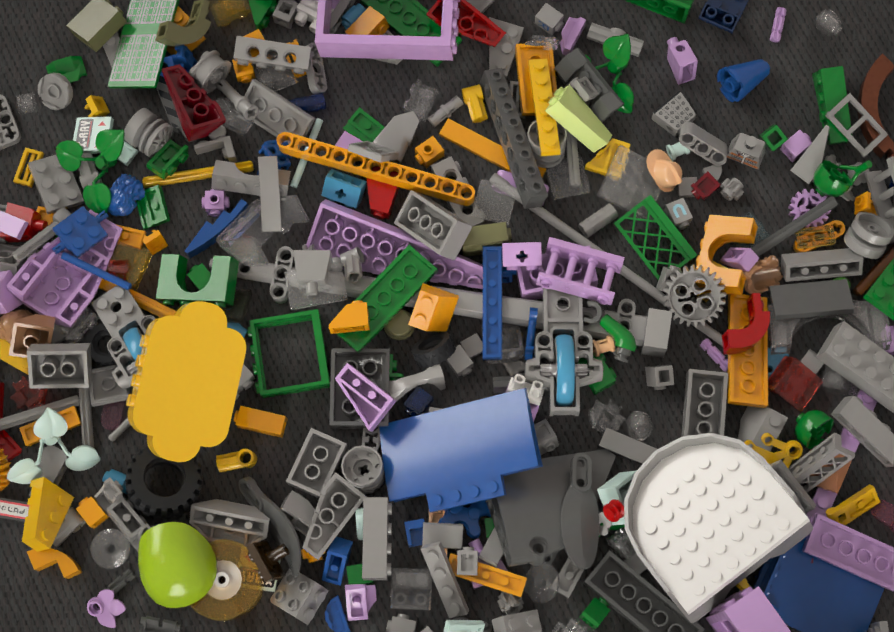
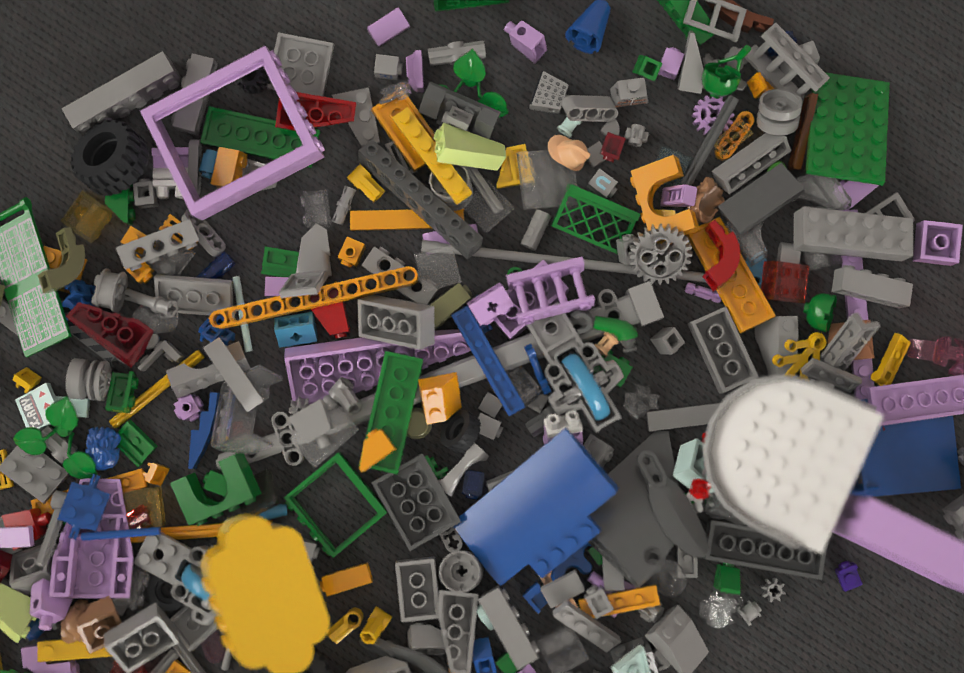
camera: 30 degrees left, 10 degrees up
(263, 473) = (375, 625): none -> yellow piece
(366, 397) = (427, 510): lavender wedge -> none
(639, 425) = (674, 394): clear head -> none

